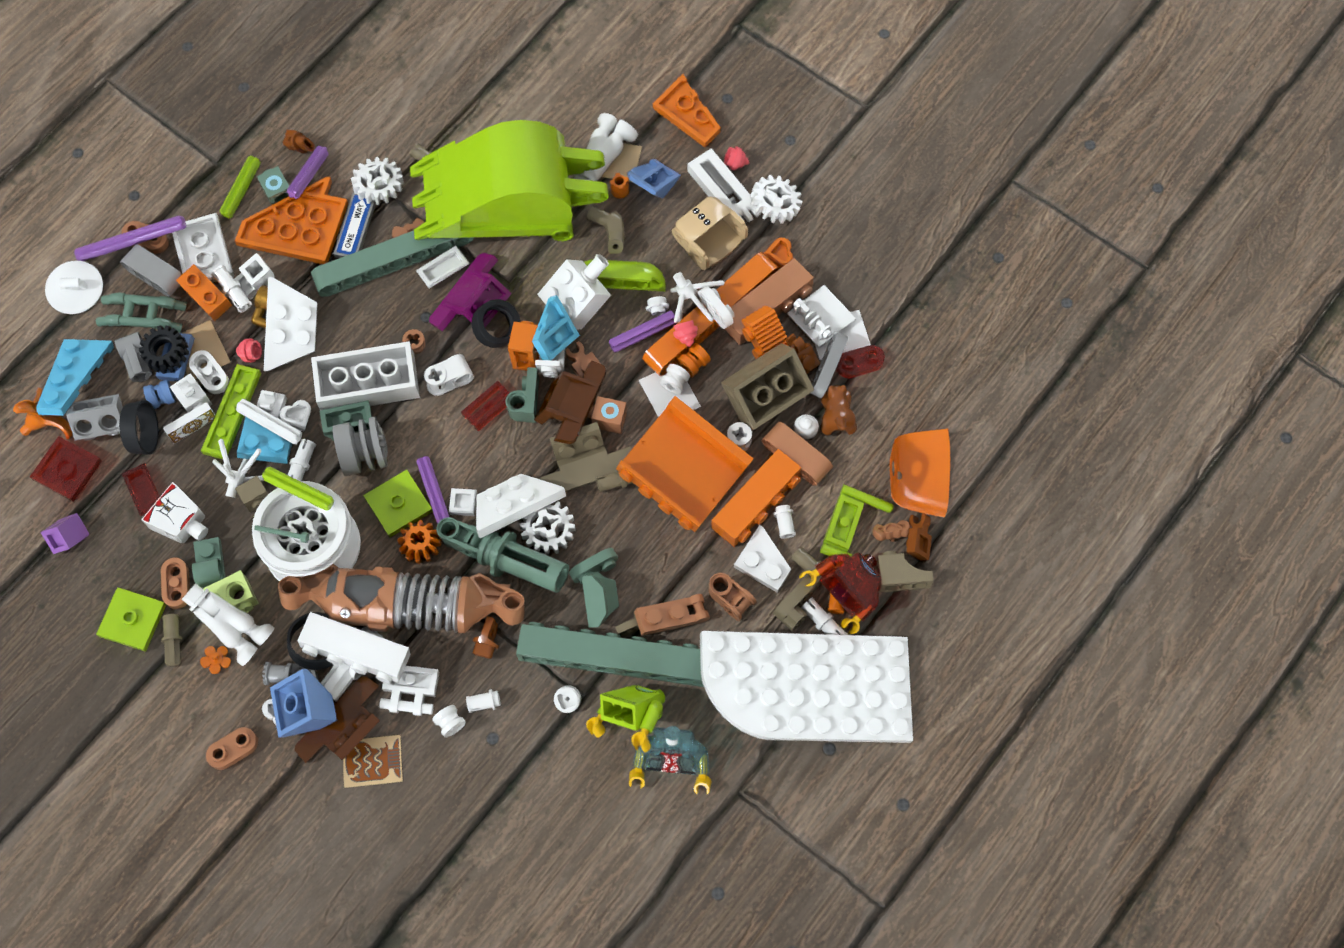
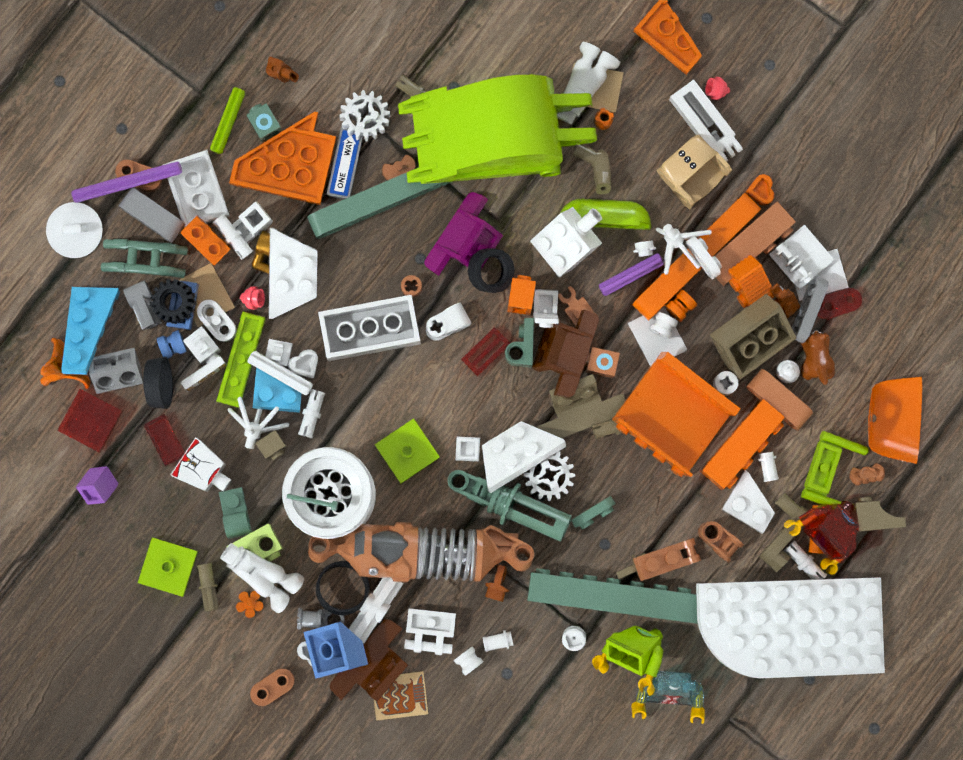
camera: 10 degrees left, 15 degrees up
(174, 585) = (205, 533): nougat plate -> none
(298, 488) = (324, 458): lime axle -> none
(307, 172) = (295, 107): medium lavender axle -> none
(343, 414) = (354, 373): sand green slope -> none
(353, 647) = (381, 599): white brick -> none
(360, 446) = (370, 399): light grey wheel -> none
(419, 550) = (433, 498): orange gear -> none
(432, 488) = (439, 439): medium lavender axle -> none
(442, 267) = (434, 207): white tile -> none
(554, 330) = (550, 285): medium azure wing -> none
(600, 598) = (601, 545): sand green slope -> none
(654, 177) = (635, 109): medium blue slope -> none
(686, 332) = (675, 282): coral plate -> none
(776, 199) = (758, 135): white gear -> none
(918, 539) = (893, 483): dark orange plate -> none

